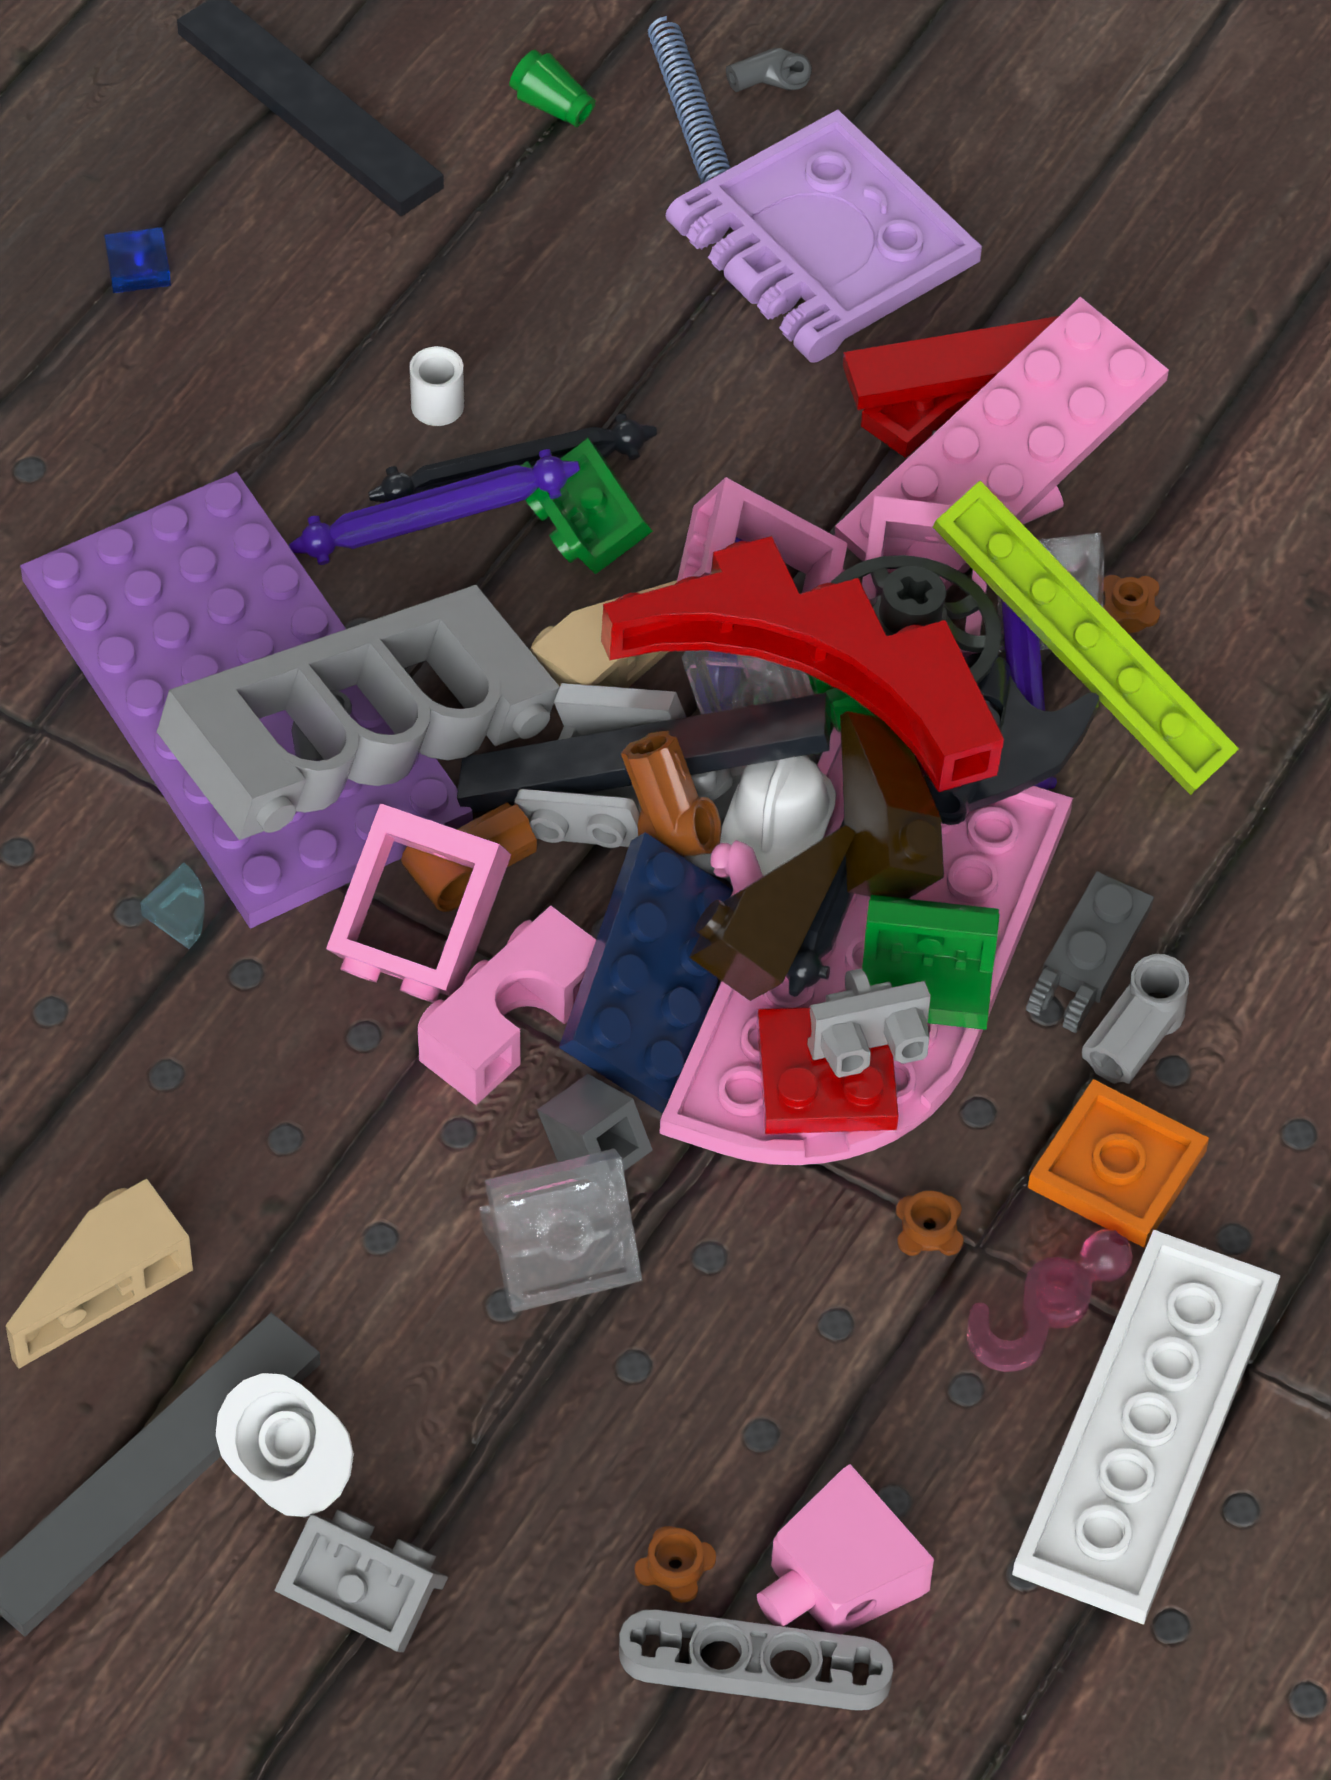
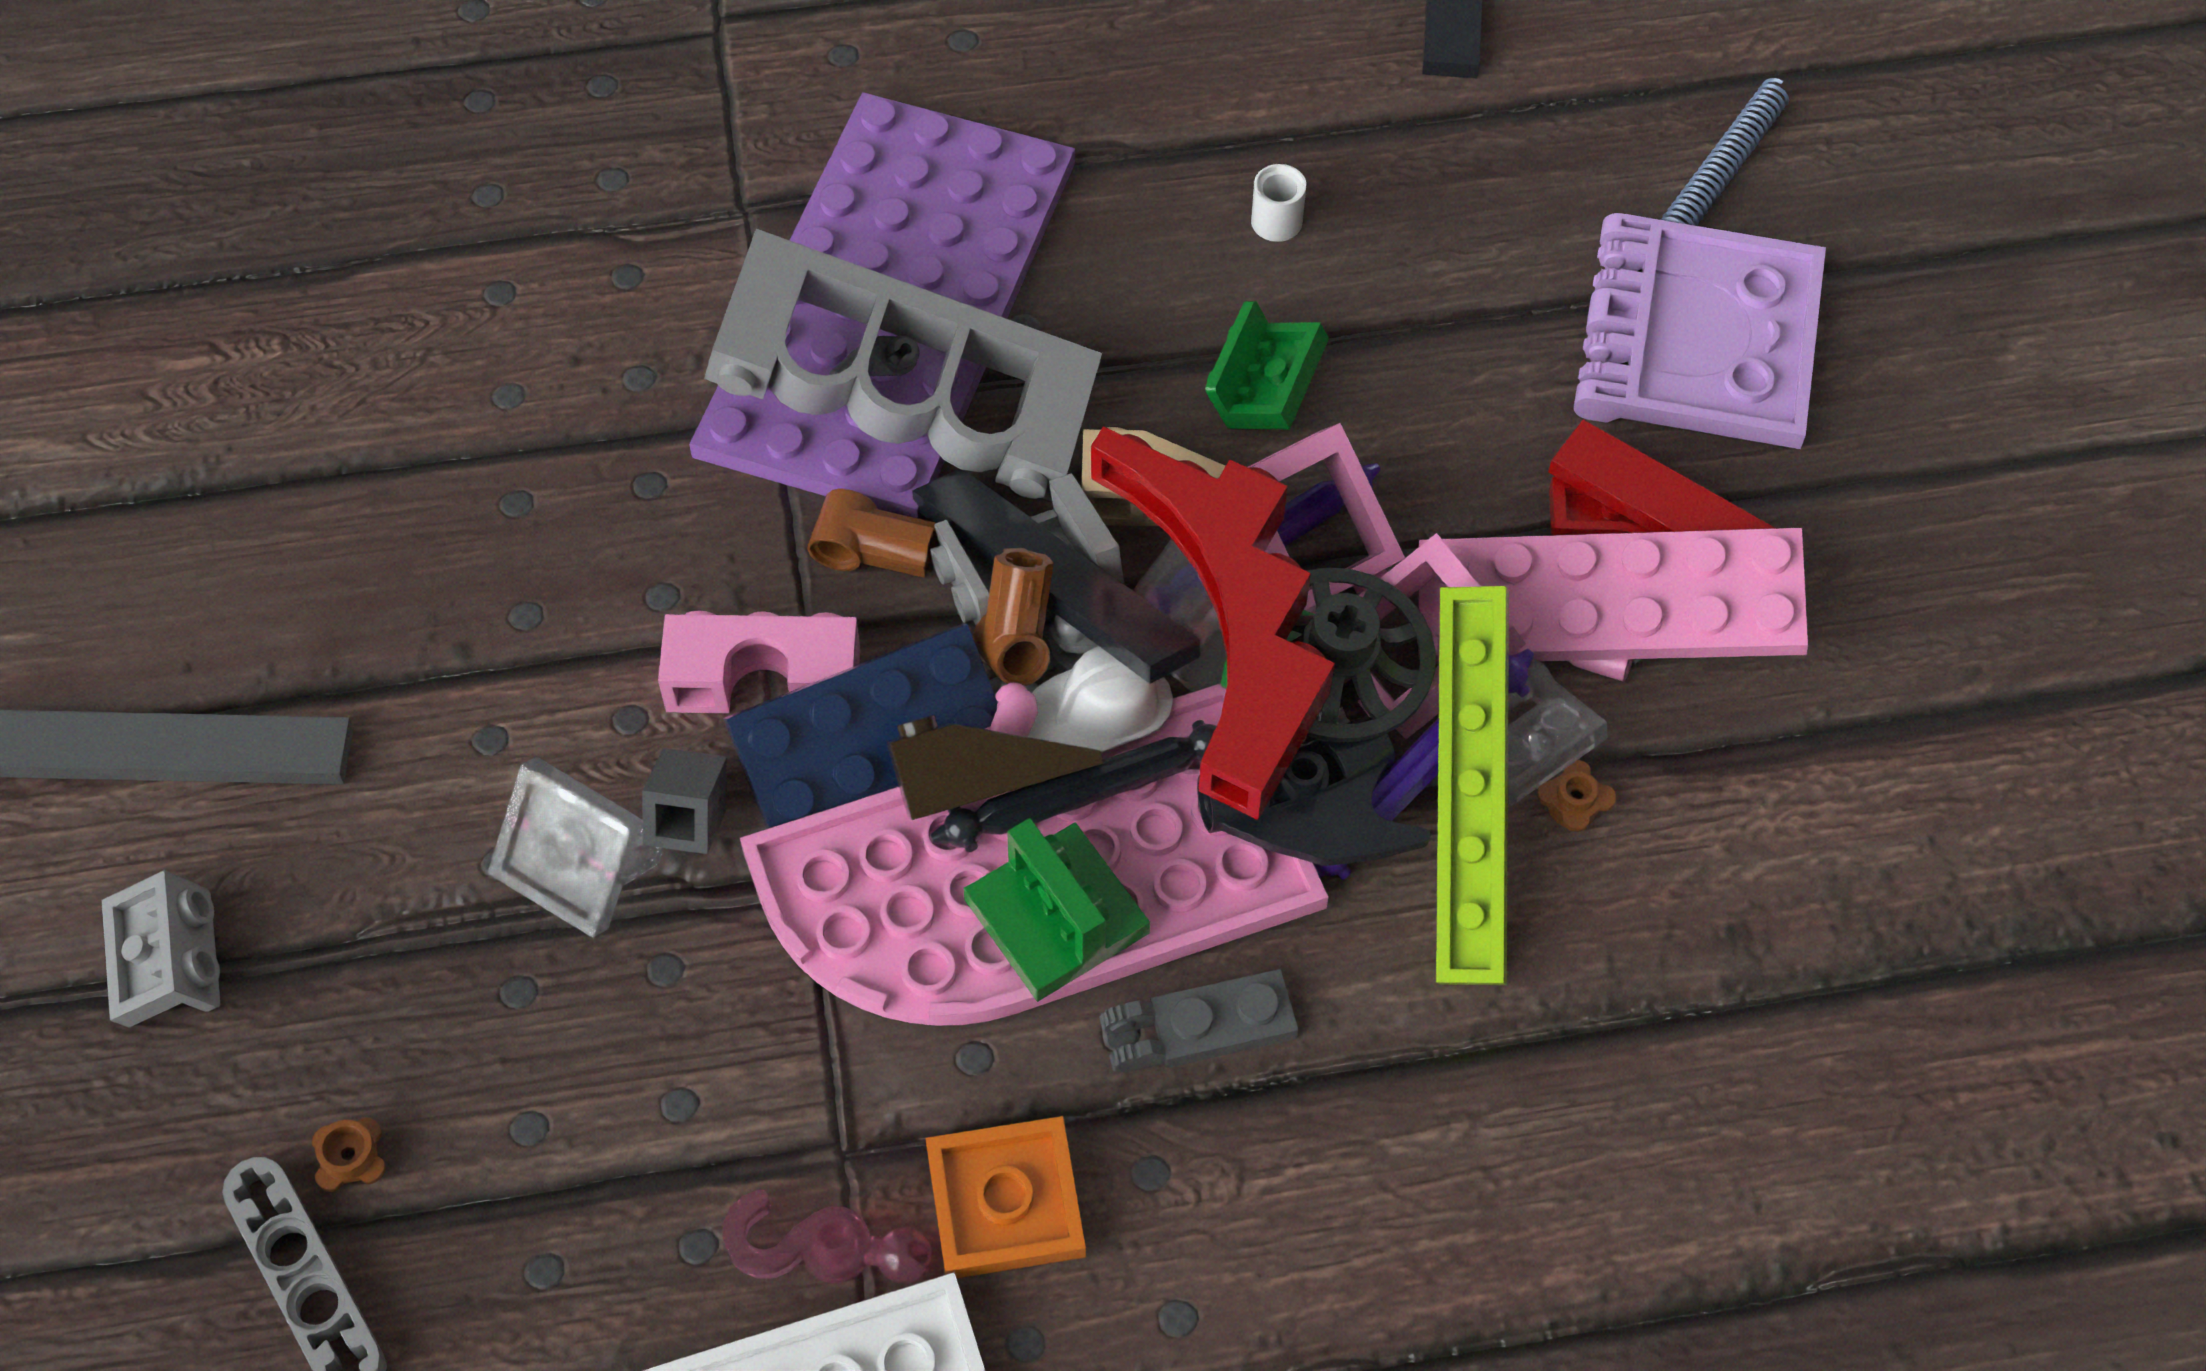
camera: 50 degrees right, 5 degrees up
(107, 1264) = (292, 584): tan slope -> none
(177, 906) = (663, 398): clear light blue tile -> none
(284, 1444) = (224, 810): white piece -> none
(434, 507) = (1161, 281): dark purple wheel -> none
(488, 864) = (829, 555): bright pink window -> none
(551, 88) = (1634, 65): green cone -> none
(624, 437) = (1277, 305): black wheel -> none
(771, 67) = (1823, 181): dark grey arm -> none
(807, 1094) = (884, 916): red plate -> none
(844, 1560) = (438, 1271): bright pink torso -> none
(867, 1019) = (932, 900): light grey hips -> none
(890, 809) = (1148, 767): dark brown slope -> none
(929, 1208) = (820, 1082): dark orange plate -> none
(1138, 1020) = (1150, 1108): light grey piece -> none

